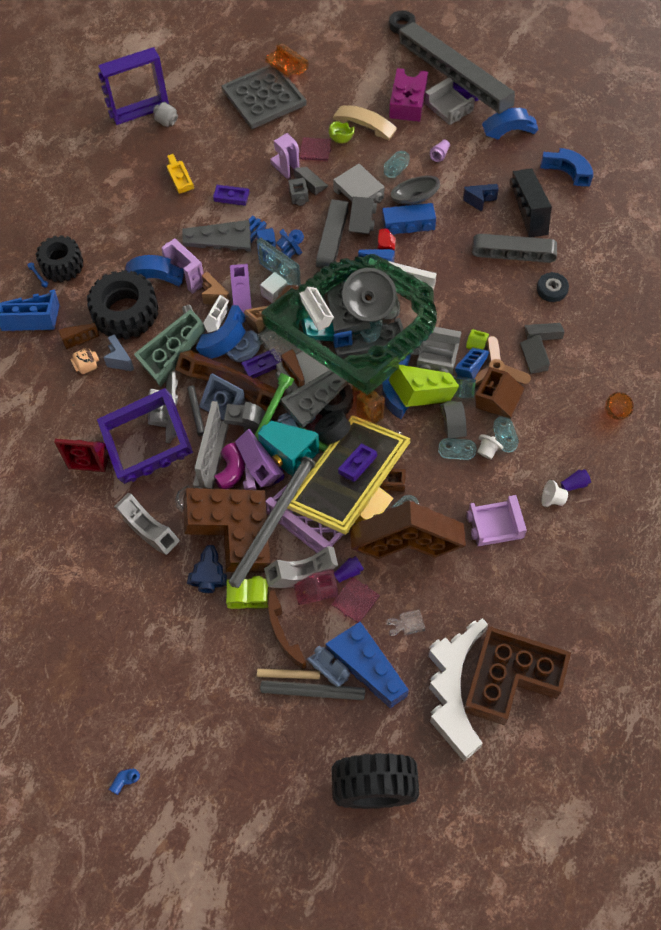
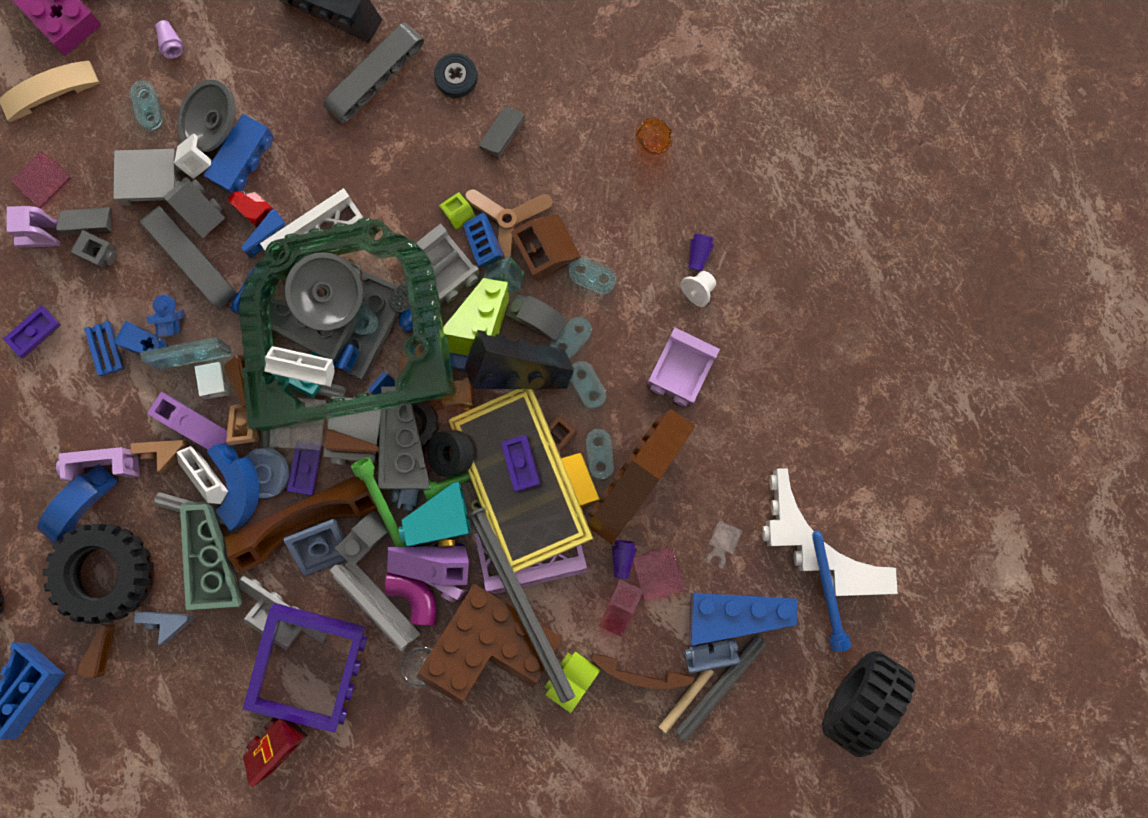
camera: 60 degrees left, 20 degrees up
(84, 360) = (142, 667): light nougat head -> none
(145, 525) = (417, 736): light grey arch -> none
(196, 411) = (307, 582): dark grey bar -> none
(208, 572) = (517, 705): dark blue rock -> none
(226, 235) = (88, 383): dark grey wing -> none
(286, 573) = (591, 609): light grey arch -> none
(341, 132) = (43, 132): lime hair -> none
(385, 197) = (190, 158): none -> white panel
(405, 743) = (839, 639): none -> blue piece
(415, 419) = (516, 365): none -> black wedge
(436, 476) = (588, 385): none -> clear light blue plate
(478, 194) = (267, 53): dark blue slope -> none
(488, 446) = (596, 307): white piece -> none
(513, 662) = (836, 483): reddish brown brick -> none
(535, 354) = (524, 166): dark grey slope -> none

